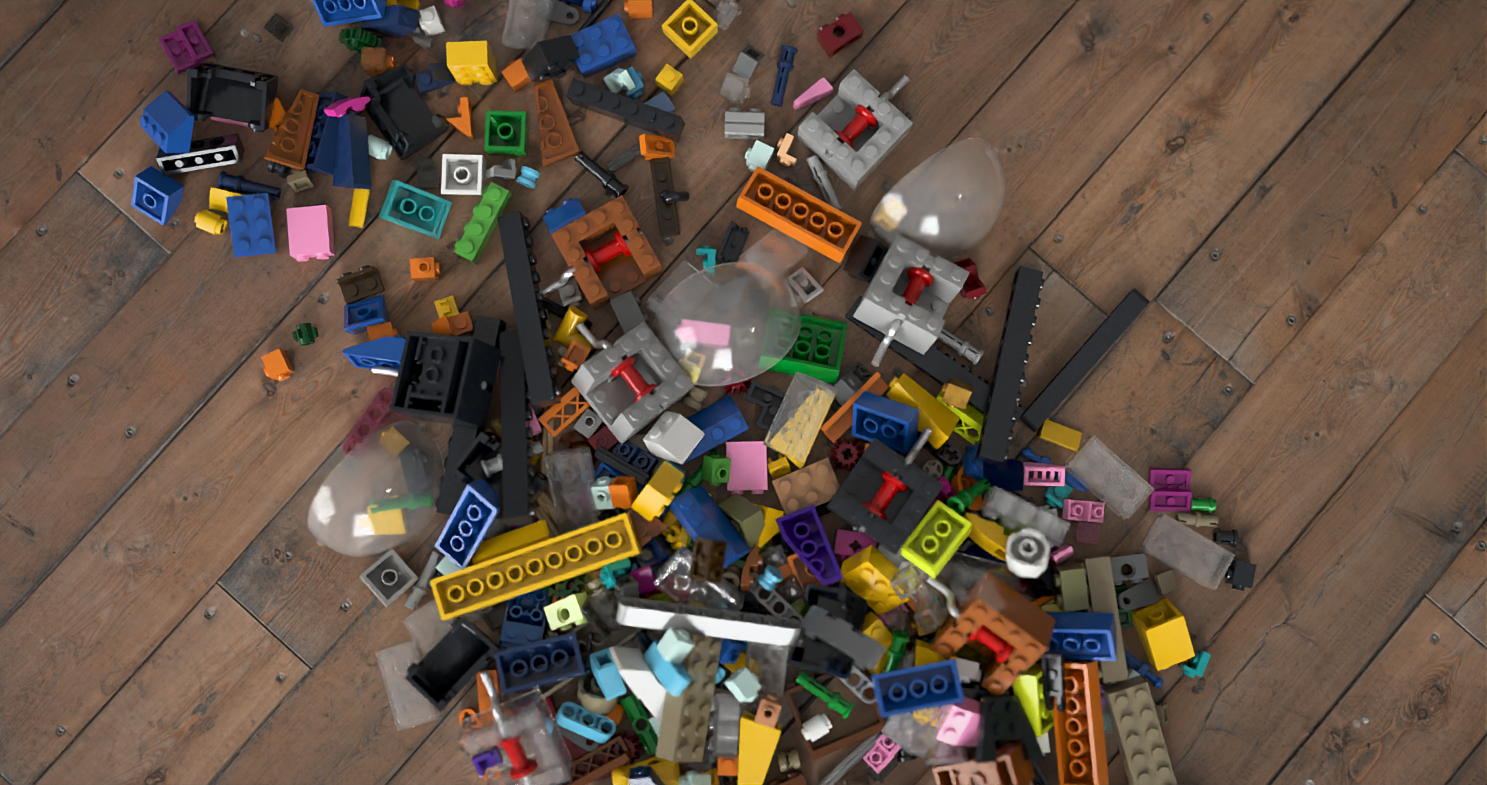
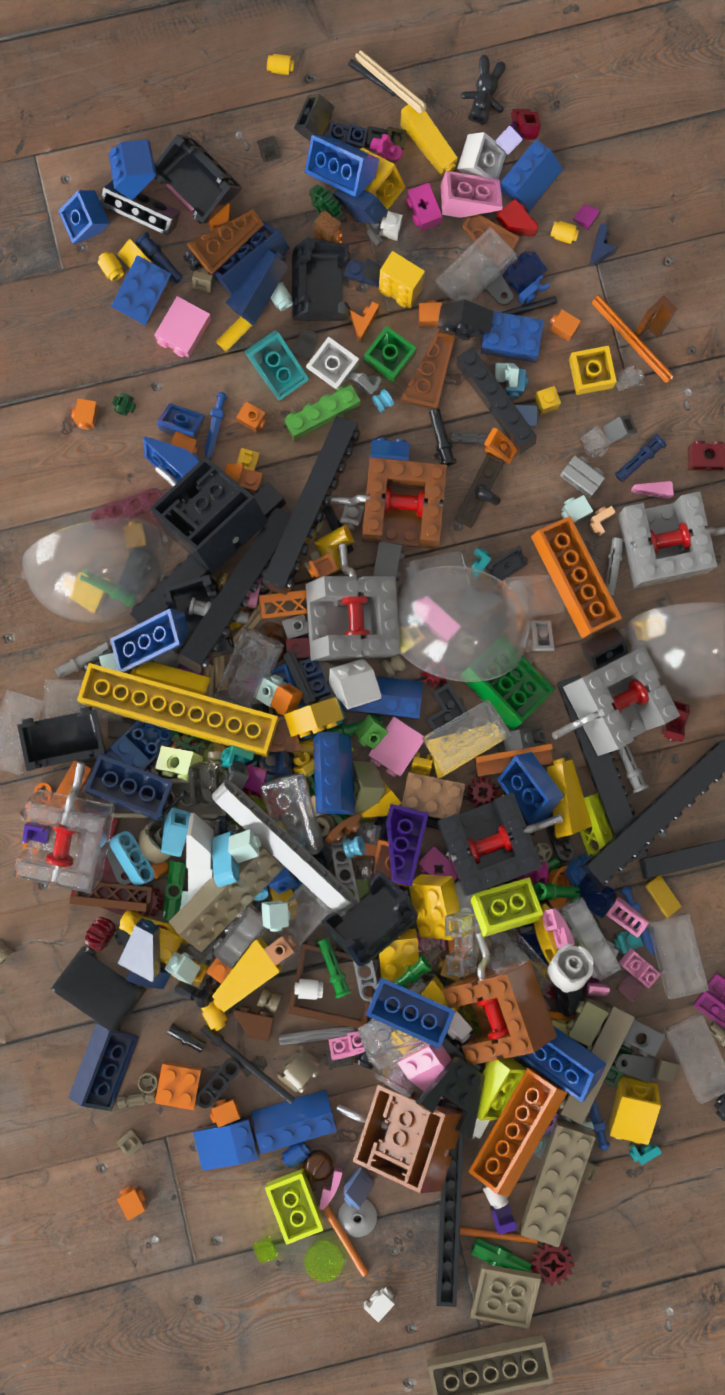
camera: 30 degrees right, 0 degrees up
(186, 46) = (186, 115): magenta slope -> none
(341, 107) = (275, 245): dark pink slope -> none
(360, 284) = (193, 395): dark brown bracket -> none
(388, 577) = (57, 639): light grey slope -> none
(394, 288) = (217, 414): none -> blue sword
(708, 560) = (316, 797): dark brown bracket -> none
(839, 634) = (378, 926): dark grey brick -> none
(956, 393) = (603, 804): pearl gold brick -> none
(987, 523) = (555, 922): none -> bright pink slope
(1054, 680) = (521, 1084): black hinge -> none

